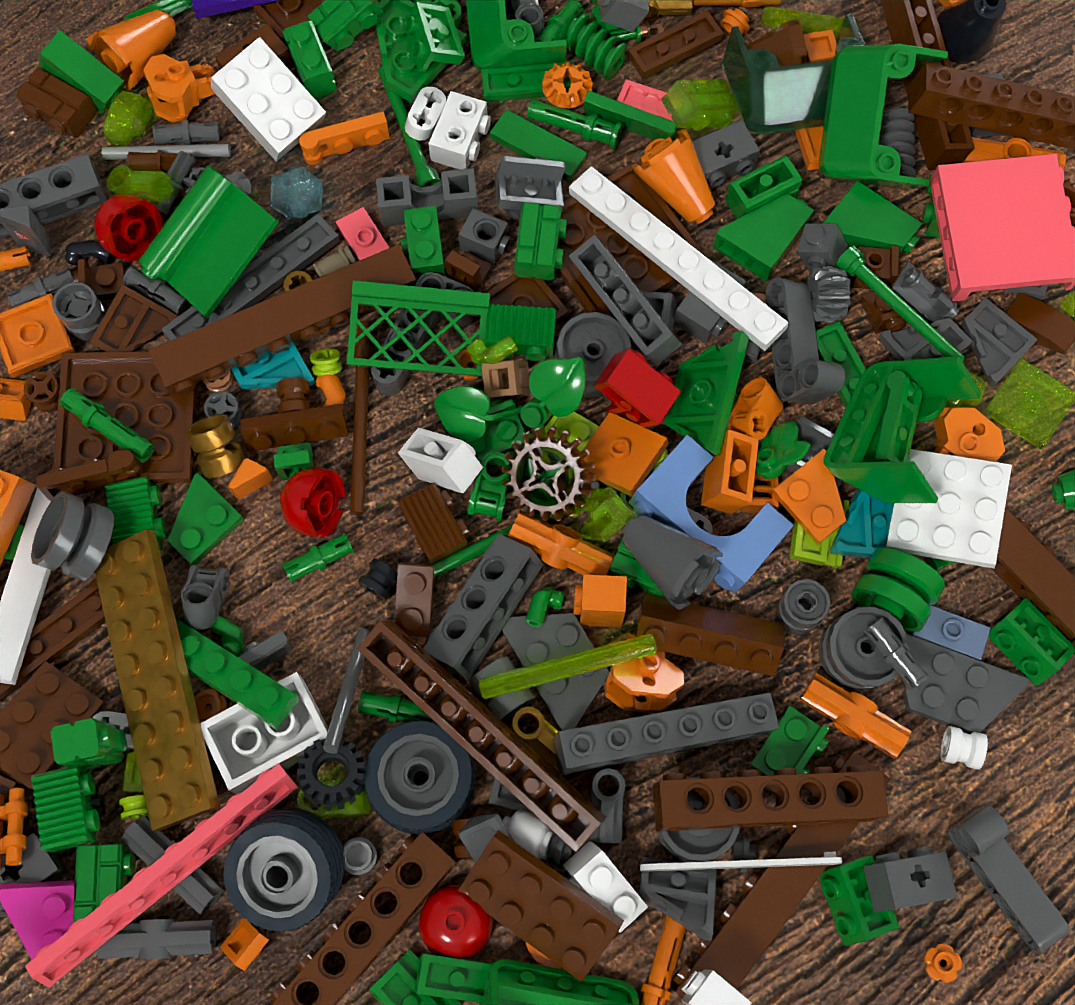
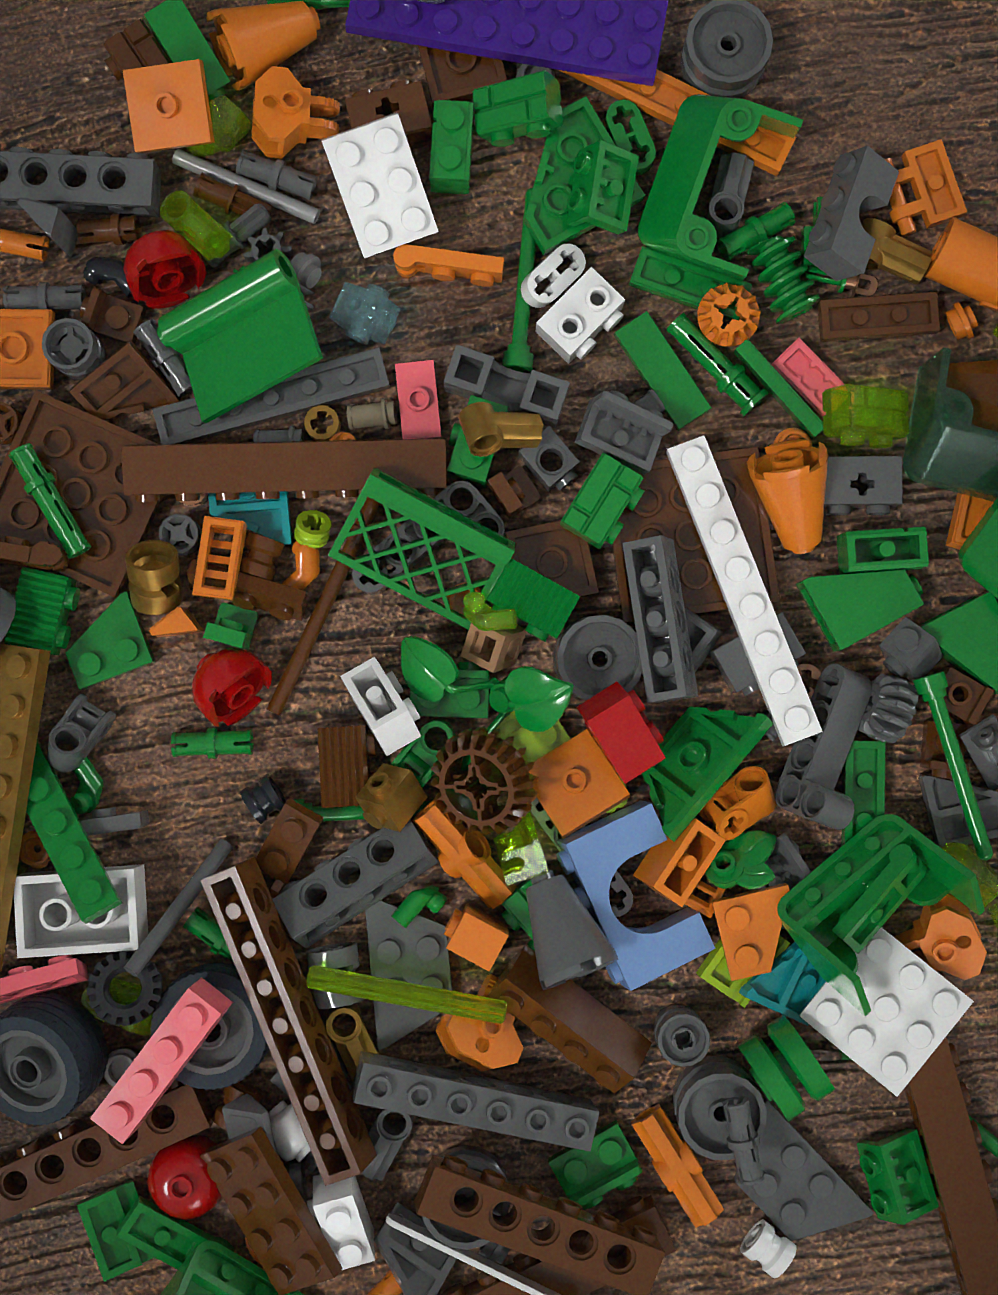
camera: 25 degrees right, 15 degrees up
(72, 221) = (113, 229): none -> reddish brown pin
(84, 111) = (168, 106): none -> orange plate
(254, 384) = (221, 526): none -> orange slope
(388, 810) = (161, 1060): none -> coral brick
(436, 217) = (490, 430): none -> pearl gold piece
(481, 525) = (391, 797): none -> pearl gold brick
(954, 633) = (825, 1130): sand blue plate -> none

